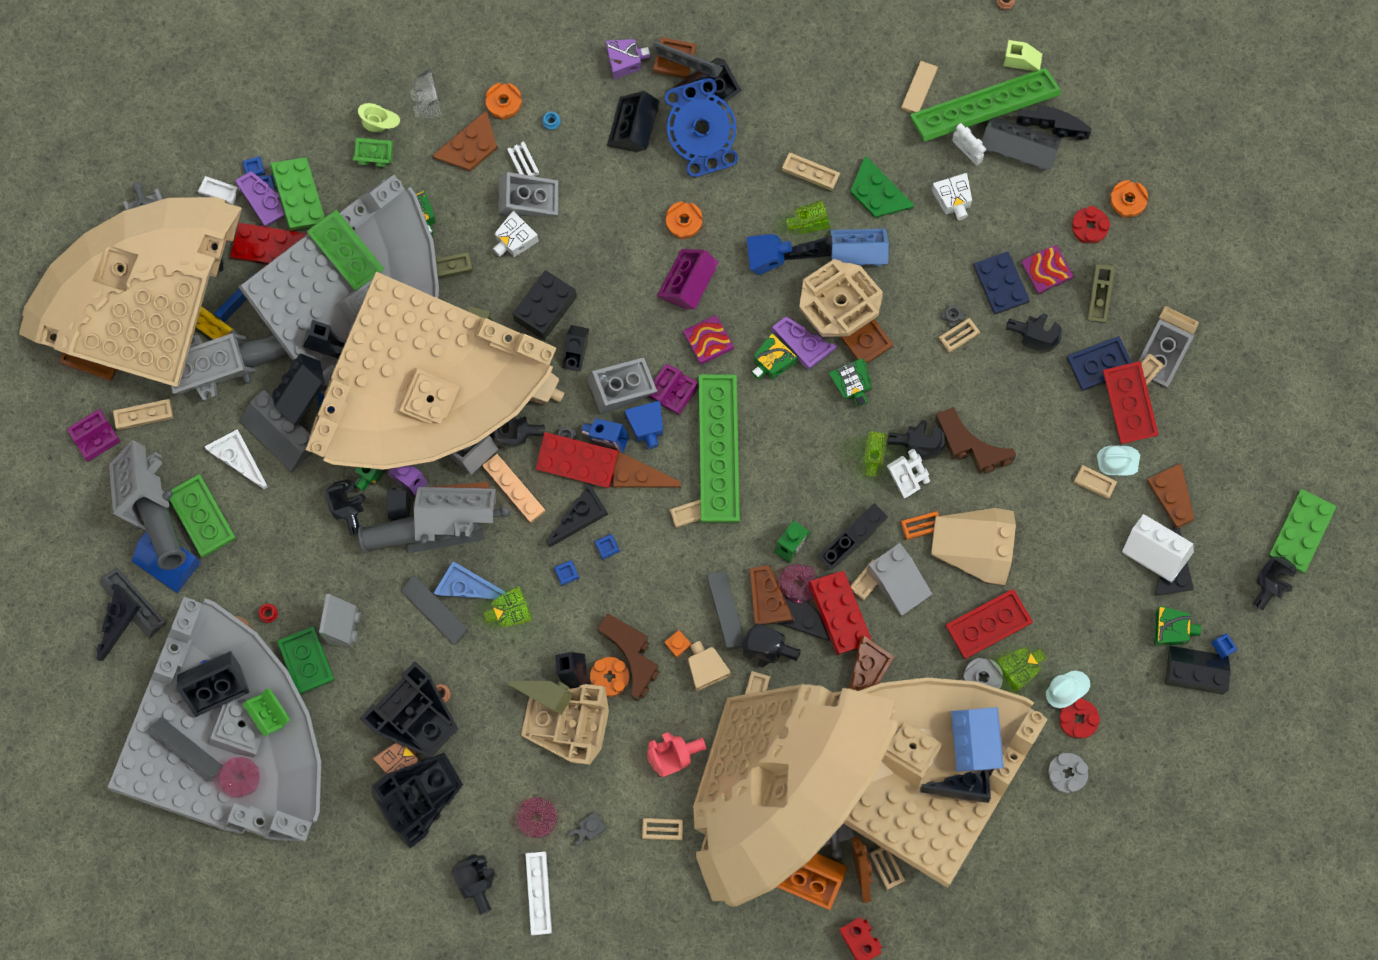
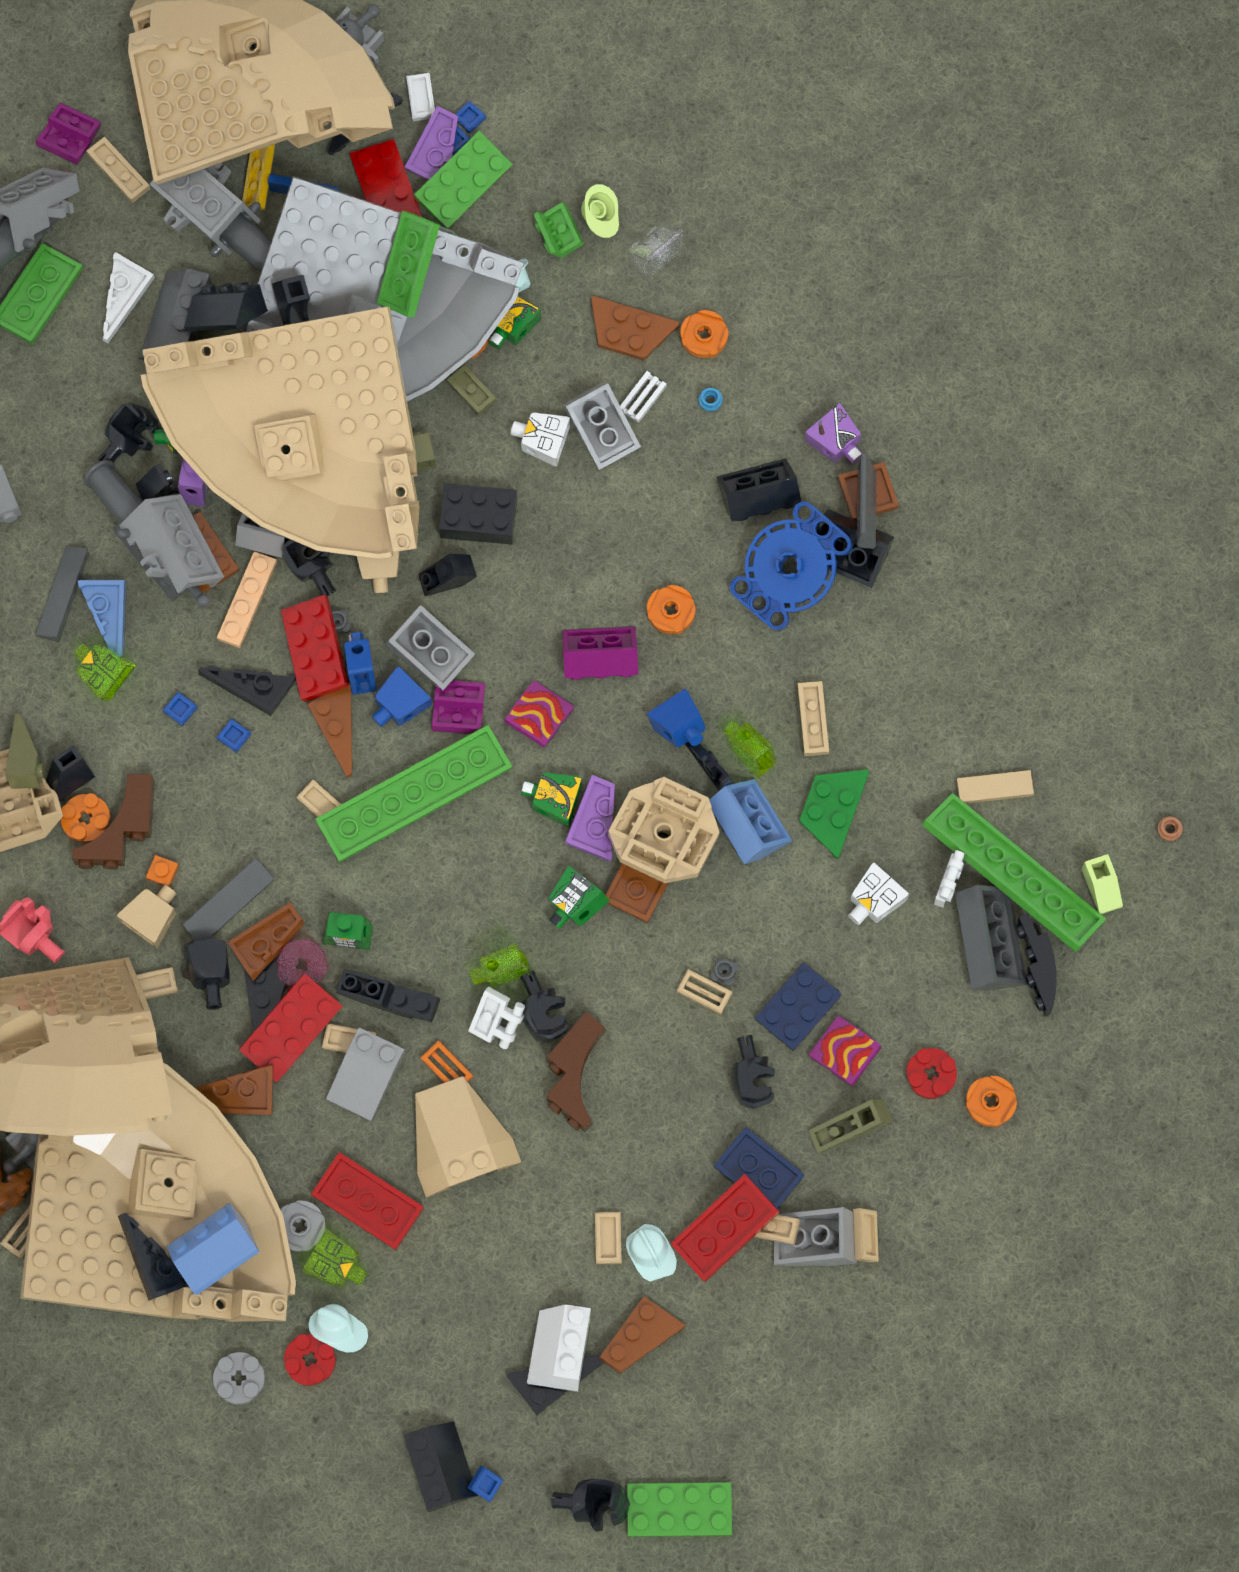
camera: 60 degrees right, 0 degrees up
(1174, 627) = (475, 1414): green torso -> none

